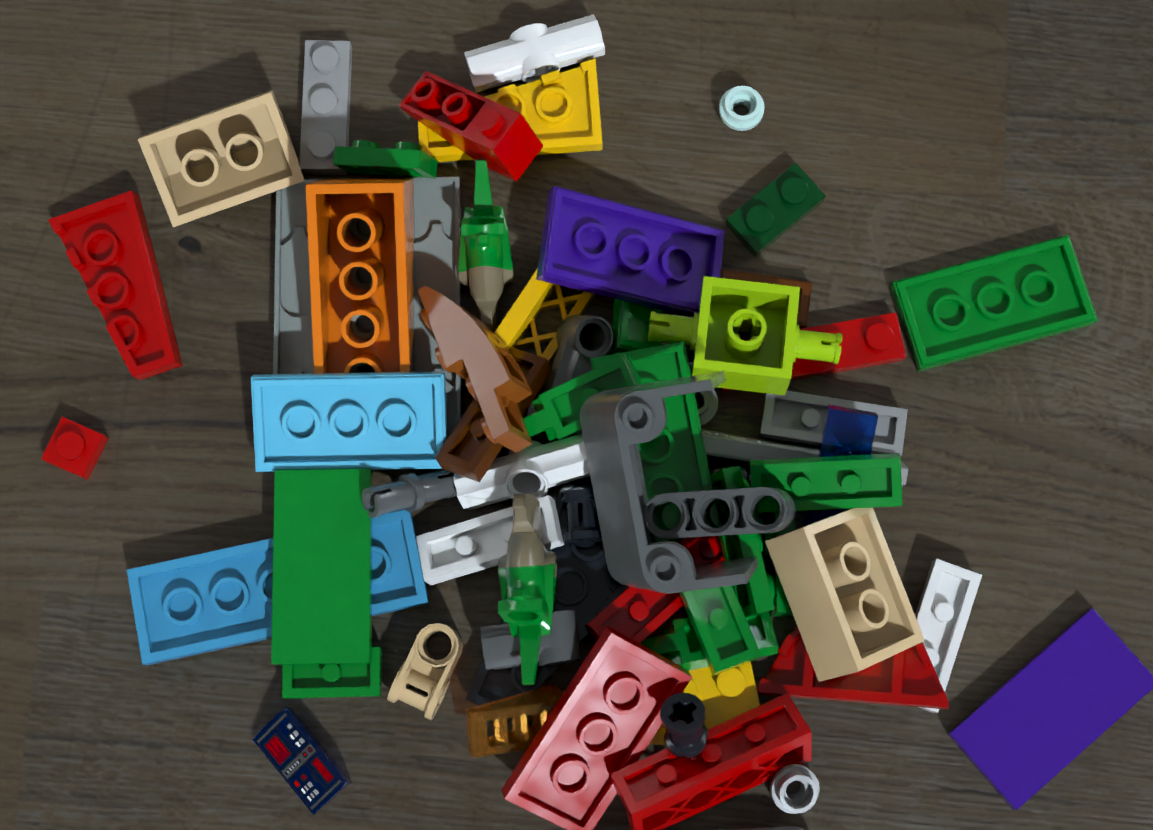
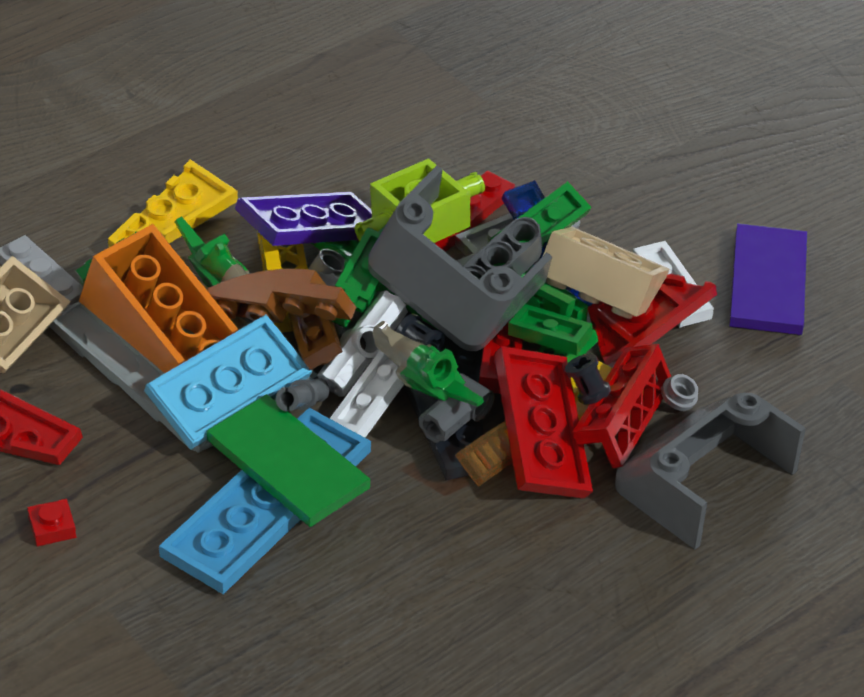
camera: 45 degrees left, 35 degrees down
(301, 760) = (378, 568): slope -> none
(333, 679) = (352, 518): green plate -> none
(426, 672) = (407, 471): tan piece -> none
(474, 124) = (155, 206): red slope -> none
(534, 52) = (148, 179): white piece -> none
(745, 96) = (299, 138): light aqua plate -> none
(775, 209) = (368, 166): dark green plate -> none
(993, 303) = (534, 140): green tile -> none

